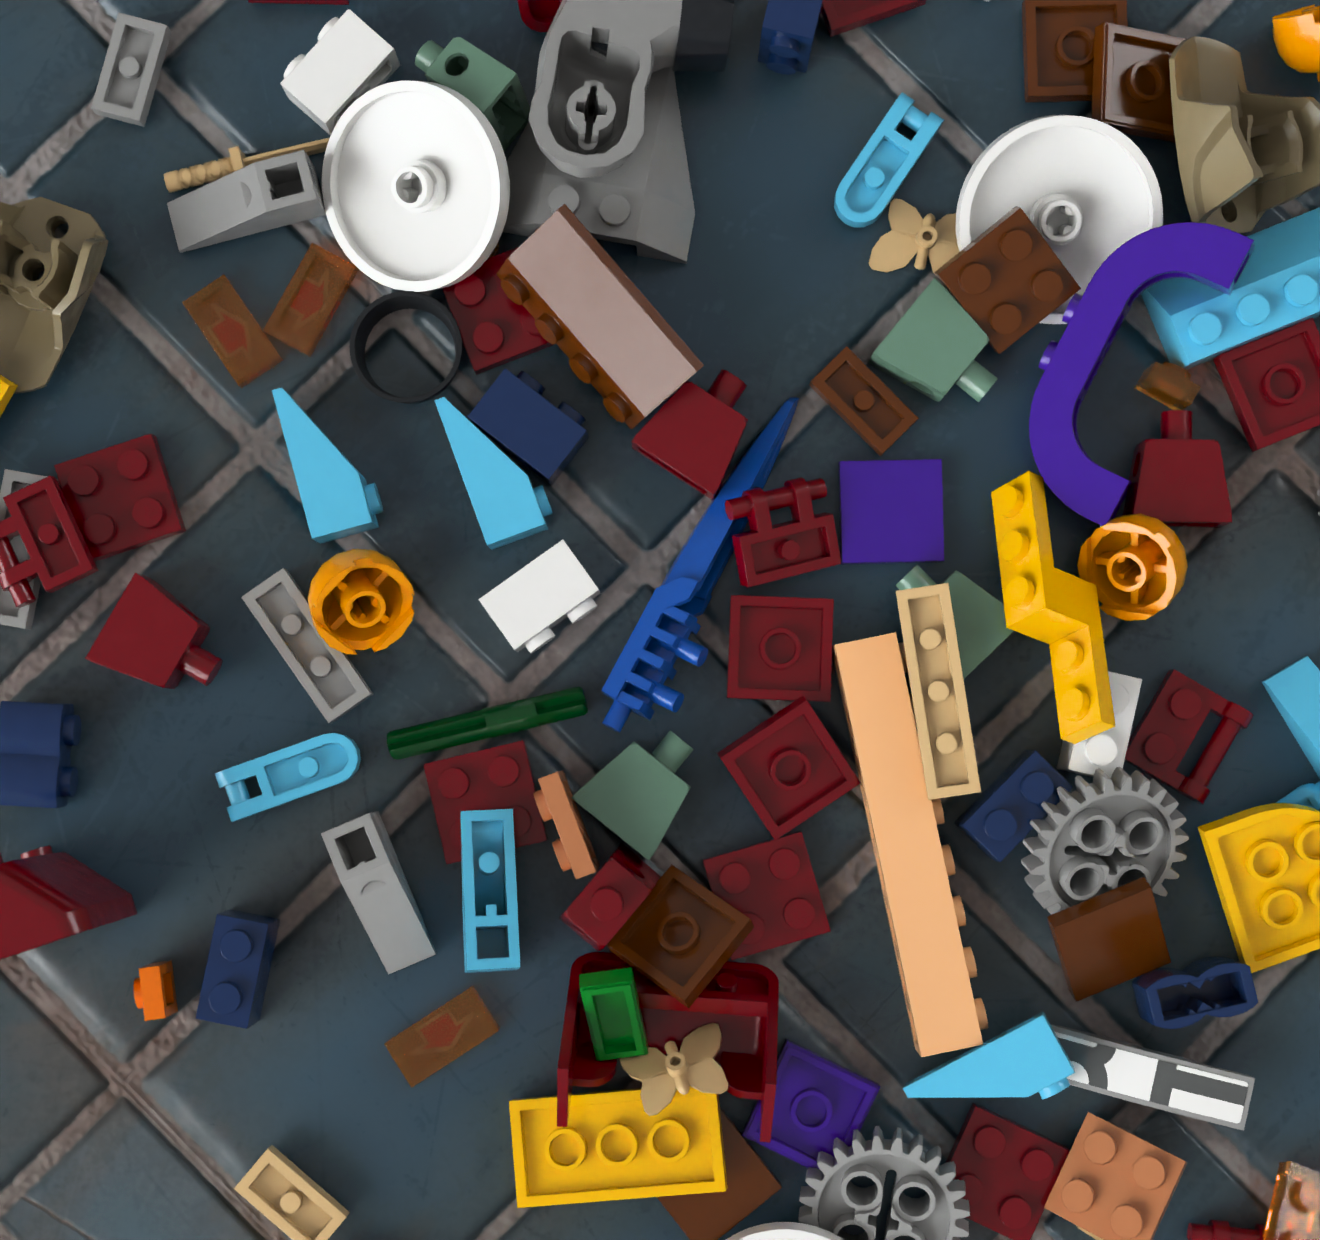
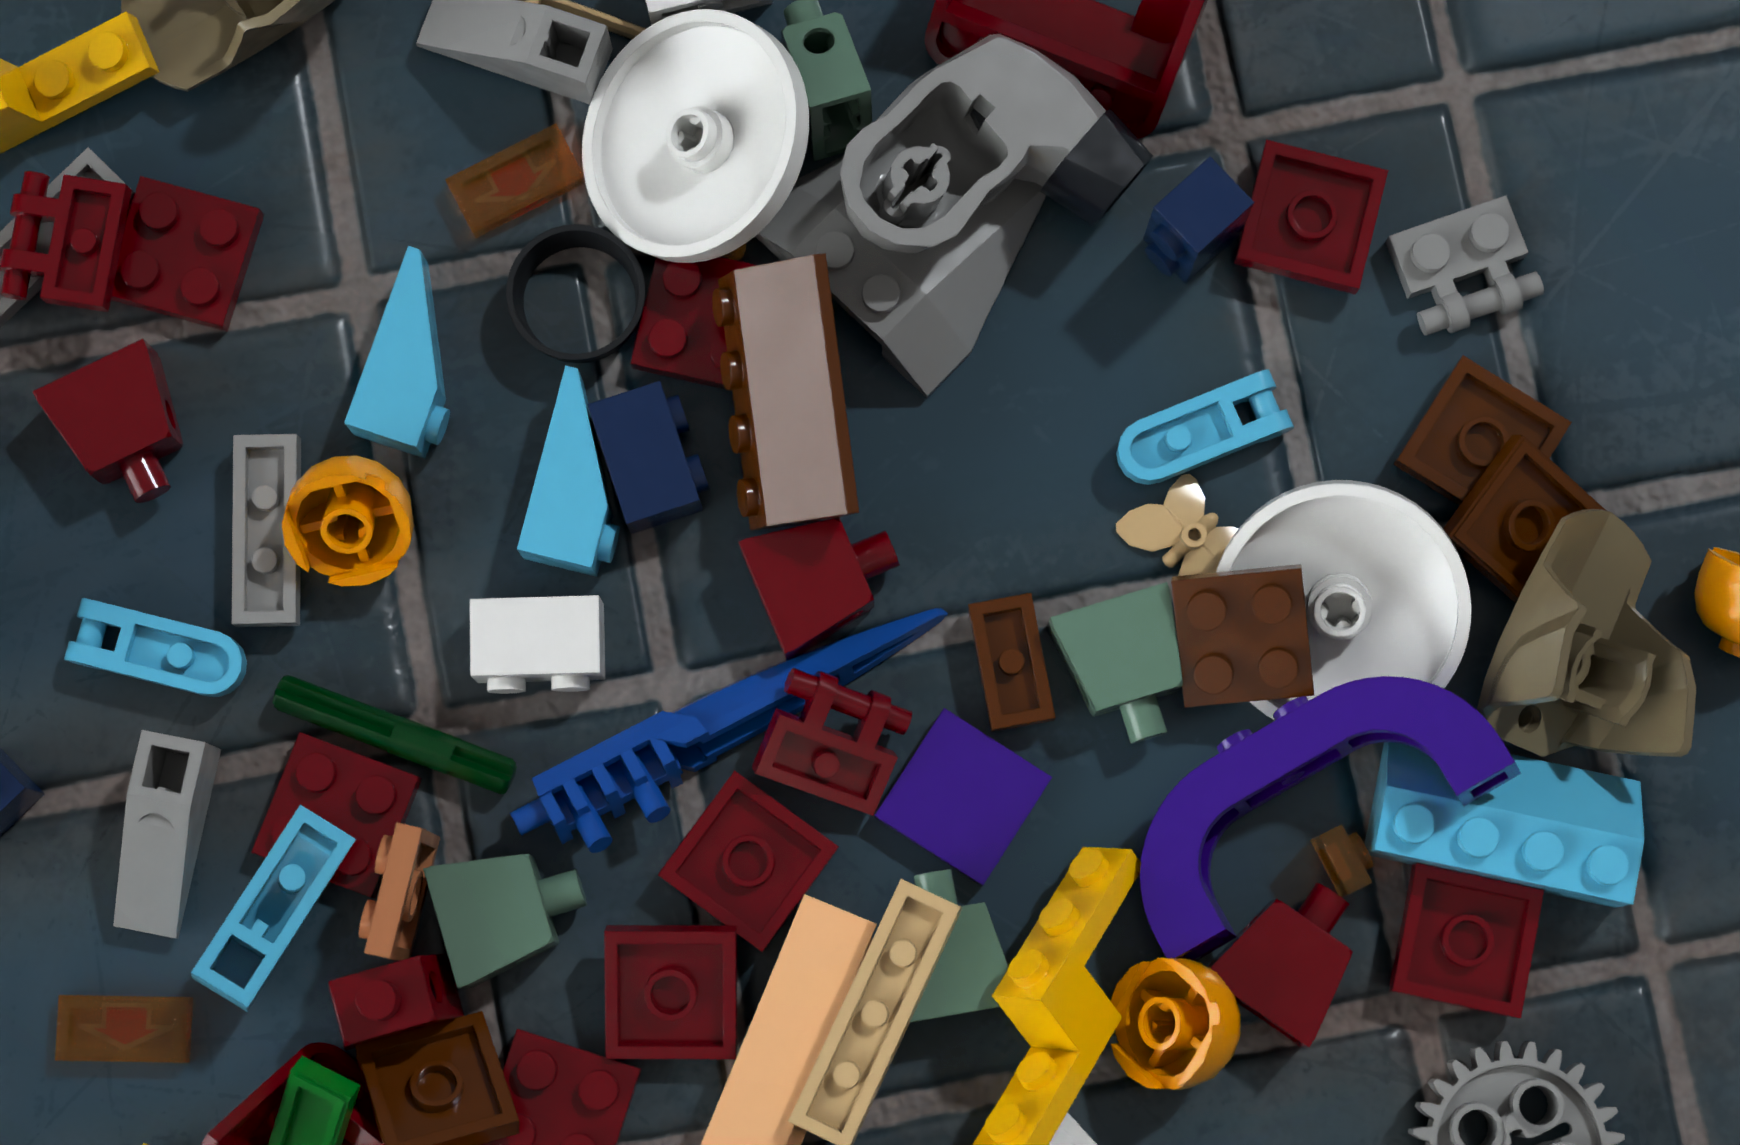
camera: 30 degrees right, 5 degrees down
(232, 331) = (414, 160): clear orange tile -> none

